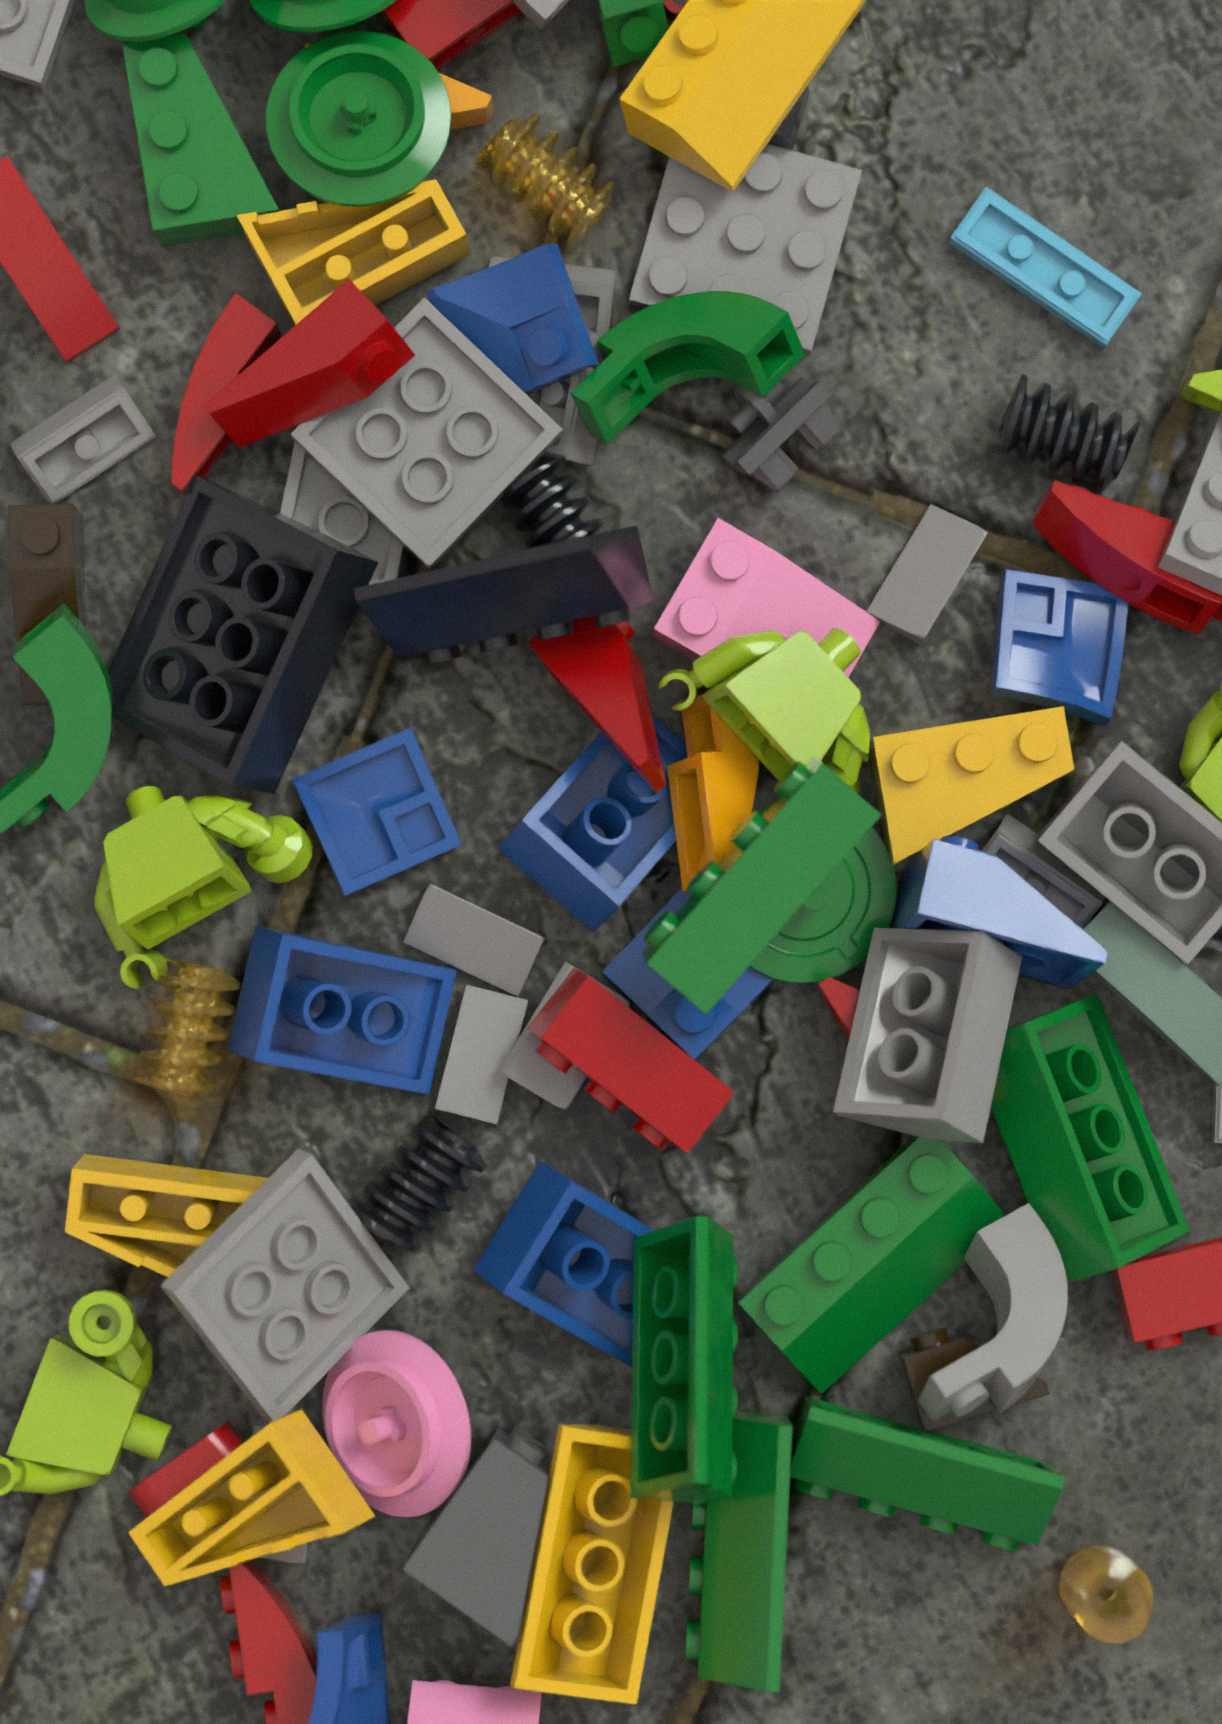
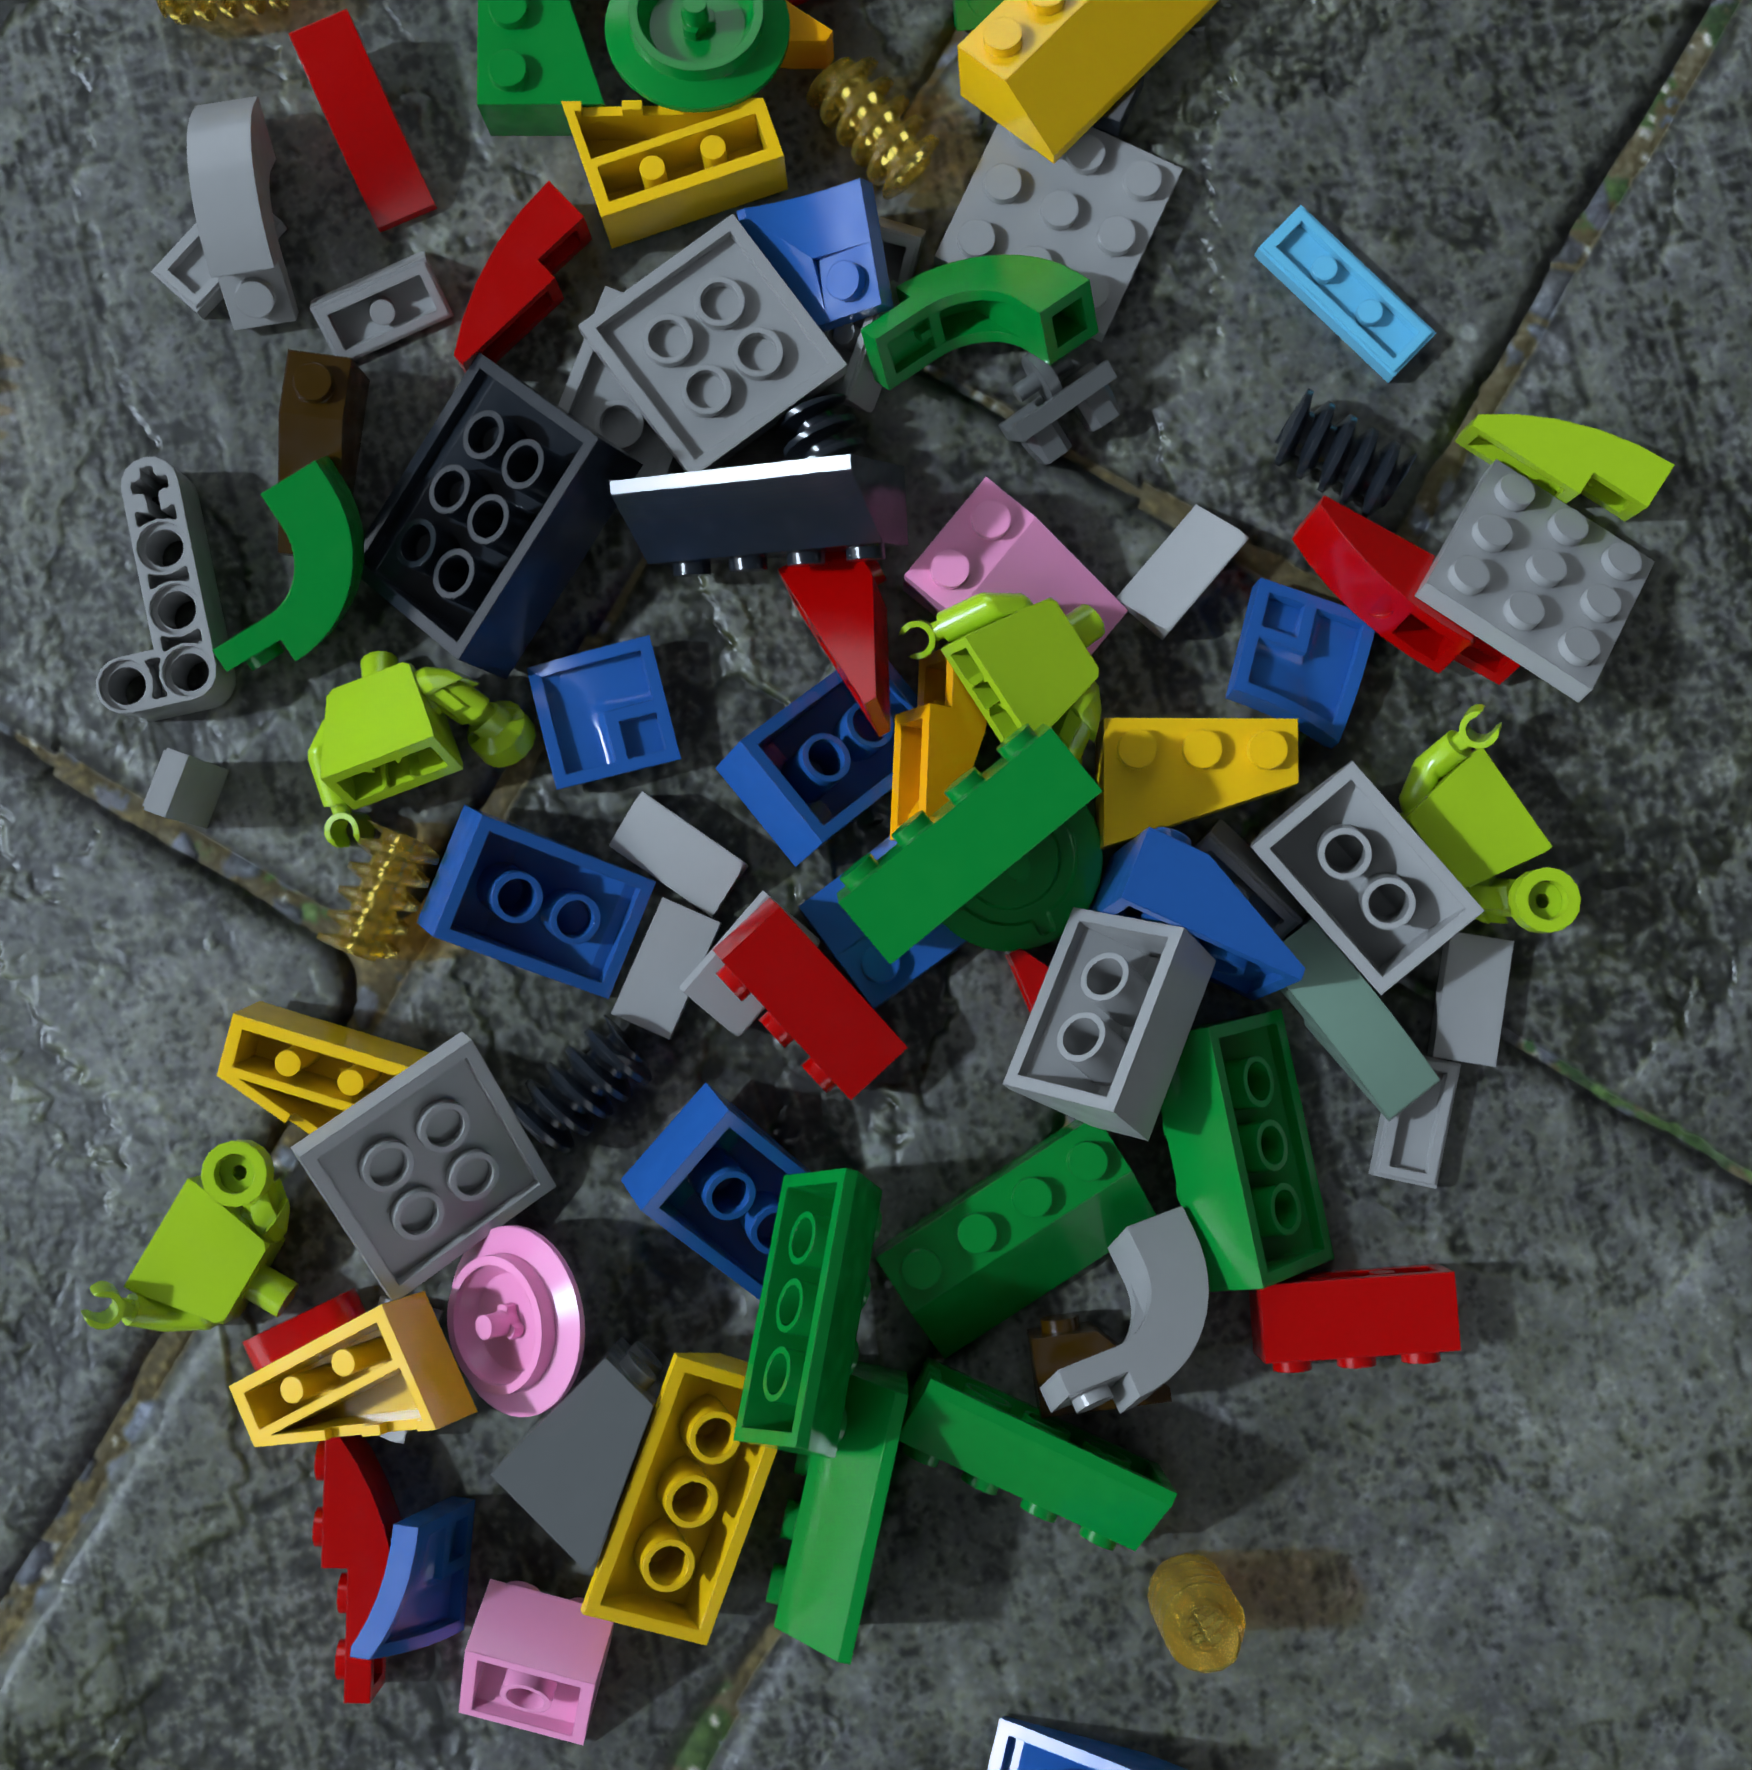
camera: 10 degrees right, 0 degrees up
(315, 368) = (609, 262): red slope -> none

